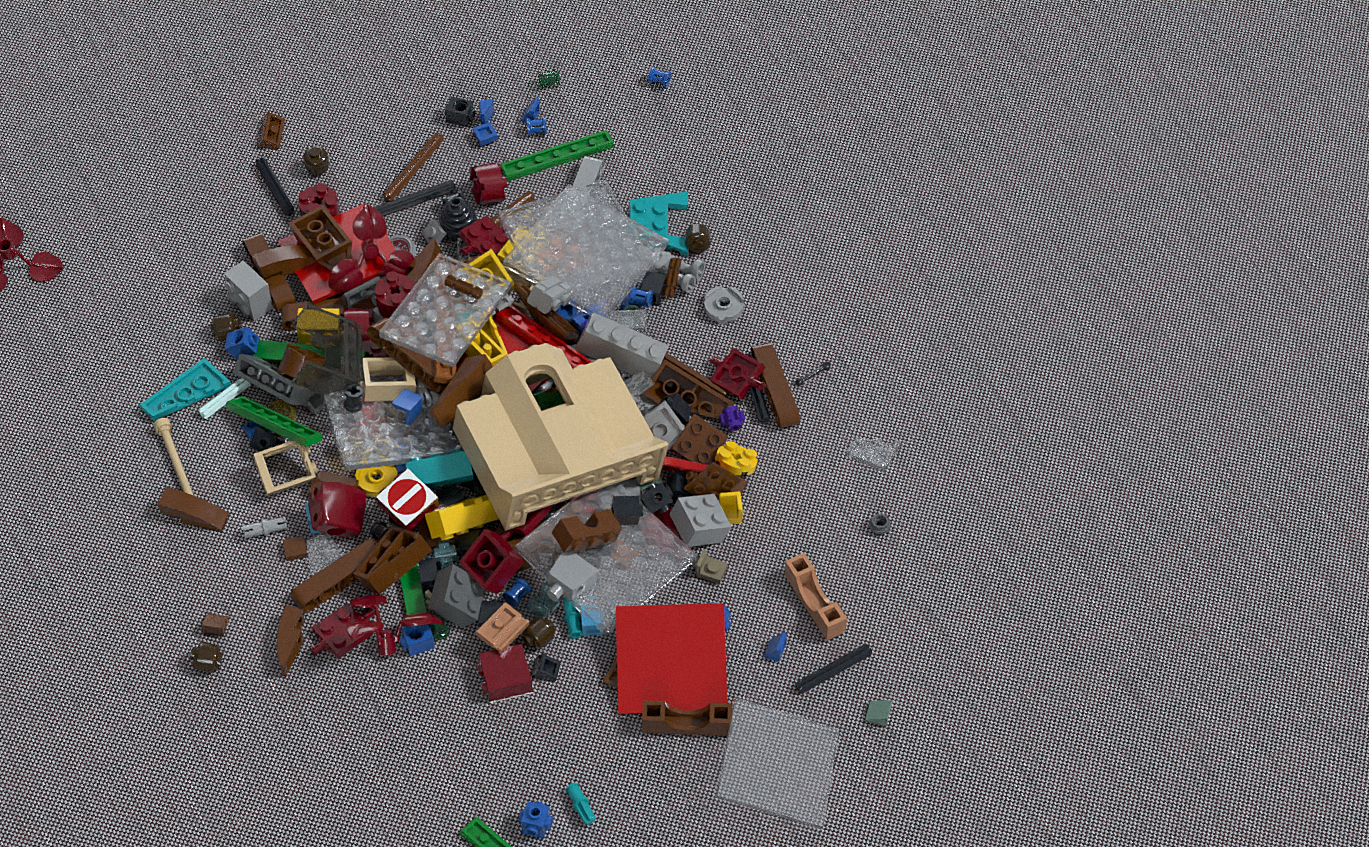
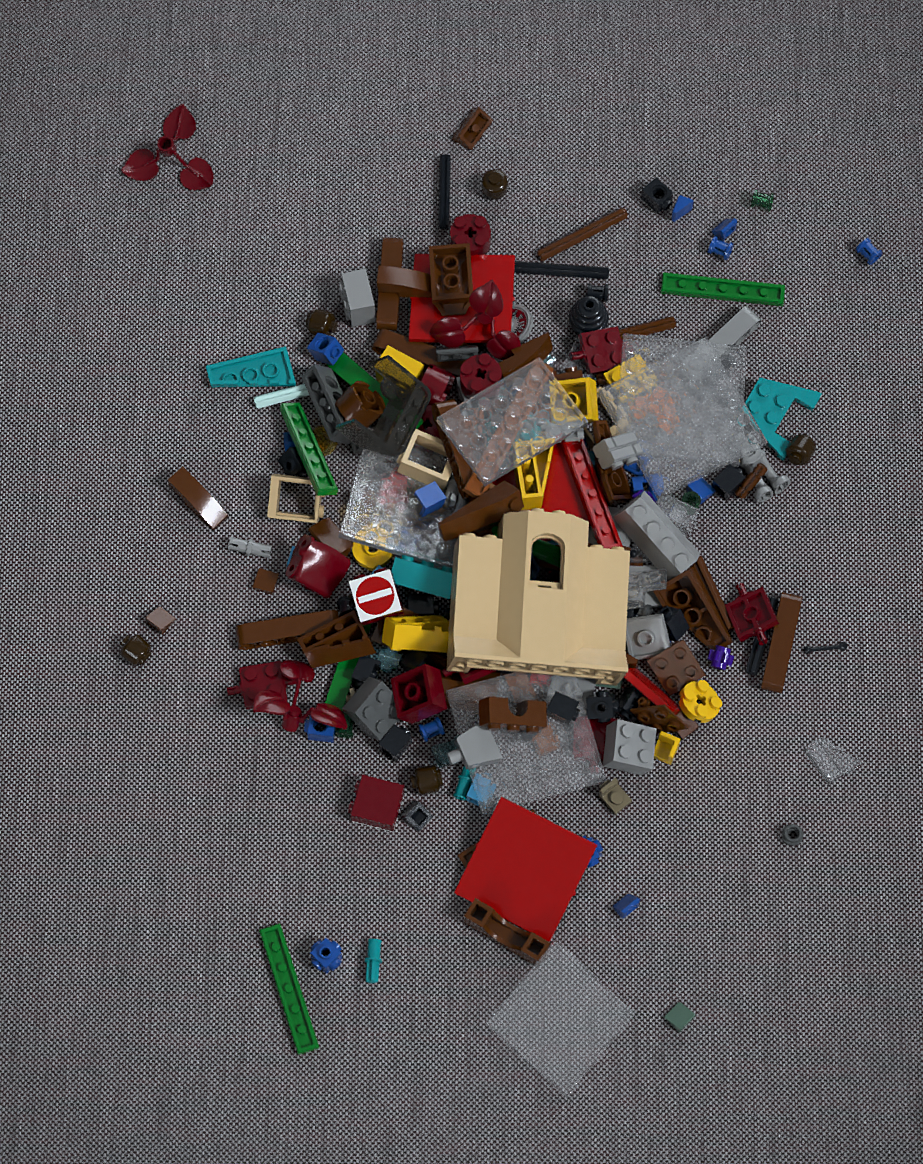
camera: 30 degrees right, 15 degrees up
(163, 428) = (214, 400): tan piece -> none
(289, 637) = (213, 669): reddish brown slope -> none
(322, 552) = (285, 600): clear wing -> none
(353, 398) = (385, 467): black bush -> none
(433, 231) = (560, 318): light grey plate -> none
(464, 287) = (539, 407): reddish brown axle -> none
(485, 133) = (667, 232): blue plate -> none
(488, 183) = (637, 291): dark red brick -> none
(502, 628) = (394, 762): nougat plate -> none
(640, 297) = (715, 491): blue bush -> none
(727, 313) = (791, 523): light grey plate -> none
(804, 581) = (688, 877): nougat arch -> none
(833, 668) = (665, 953): black axle -> none

